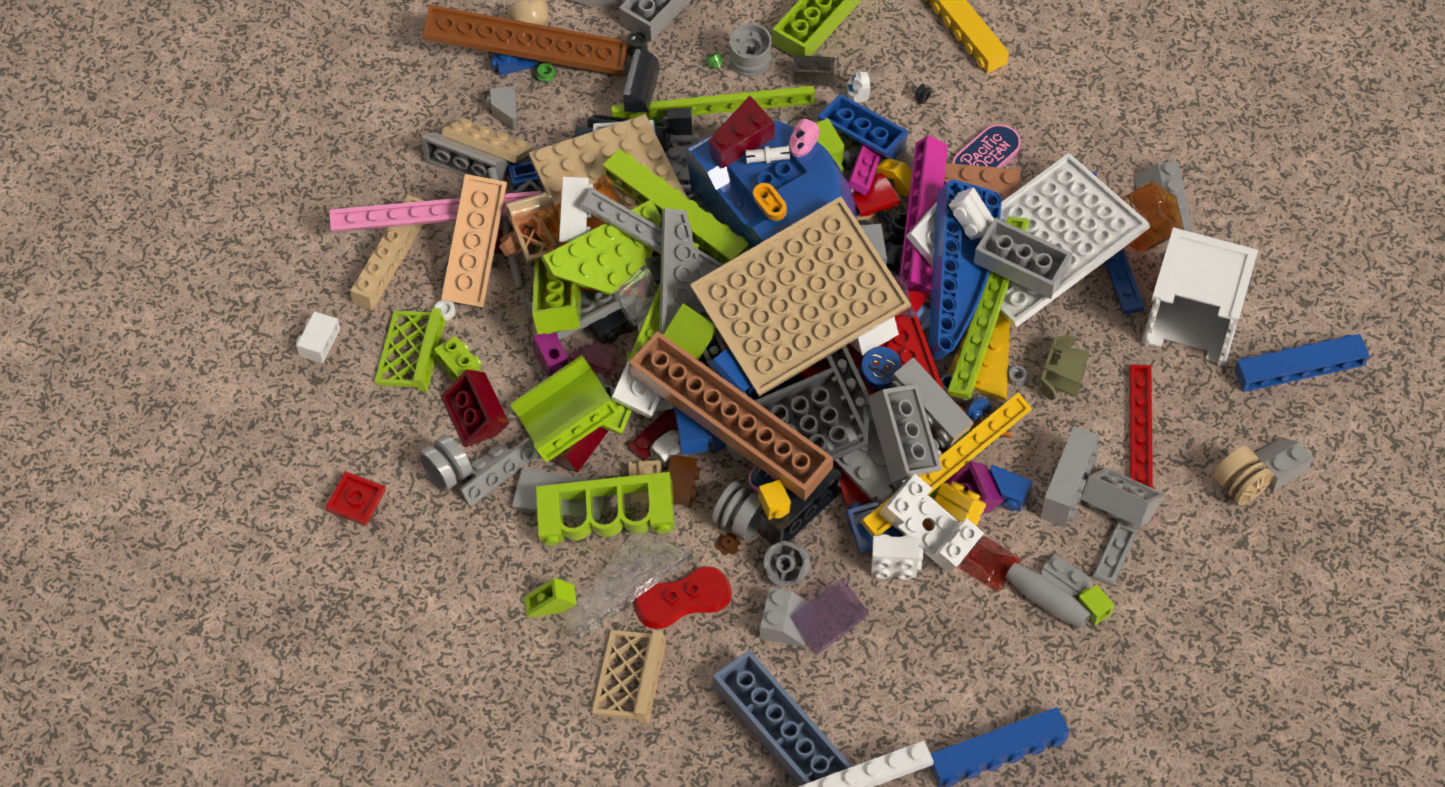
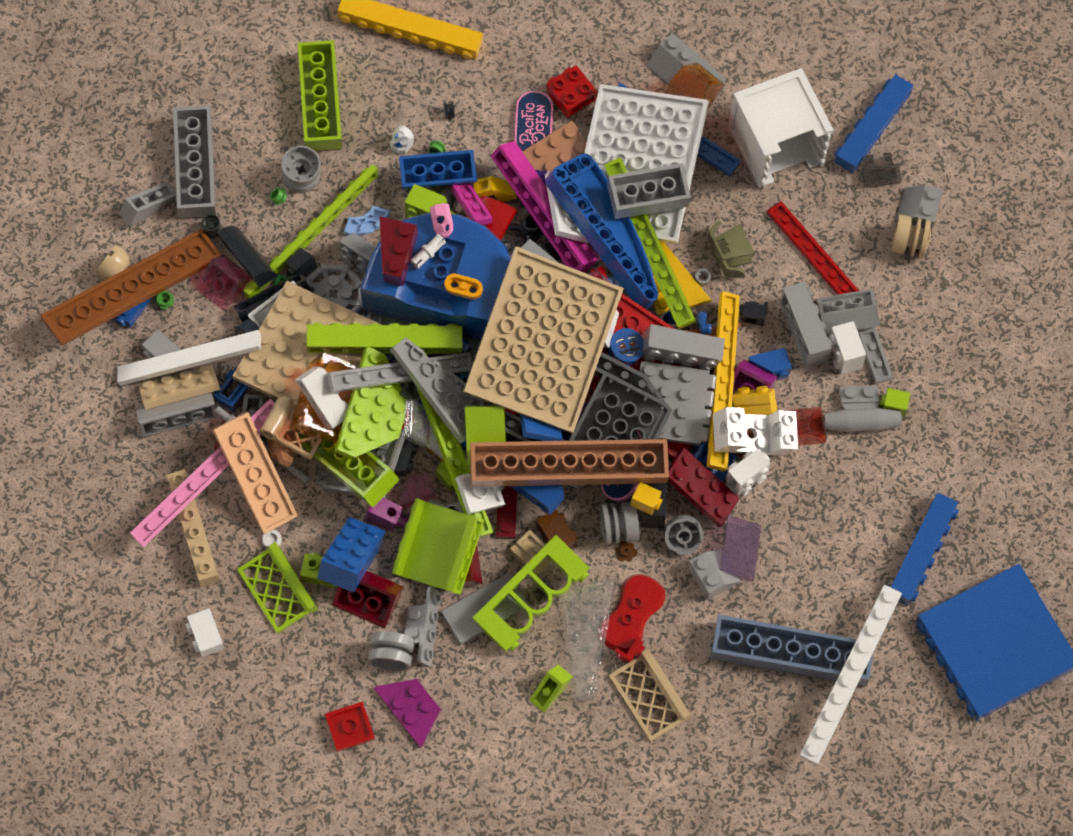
camera: 45 degrees left, 10 degrees up
(421, 524) = (411, 707): none -> magenta wing
(487, 360) = (351, 554): none -> blue brick
(514, 120) = (189, 357): none -> white tile
(603, 89) = (223, 281): none -> clear pink slope
(647, 624) = (636, 649): none -> red bracket
(665, 447) = (525, 516): white rock -> none
(813, 71) = (358, 151): clear smoke brick -> none
(840, 536) = (701, 487): none -> dark red plate
(884, 112) = (436, 147): none -> bright green plate
(904, 432) = (689, 383): light grey slope -> none
(971, 213) = (588, 184): white brick -> none
(1034, 436) = (753, 313): none -> black brick
(1042, 147) = (571, 91): none -> red brick
(1087, 526) = (849, 348): none -> white brick
(1268, 410) = (880, 175): none -> clear smoke plate

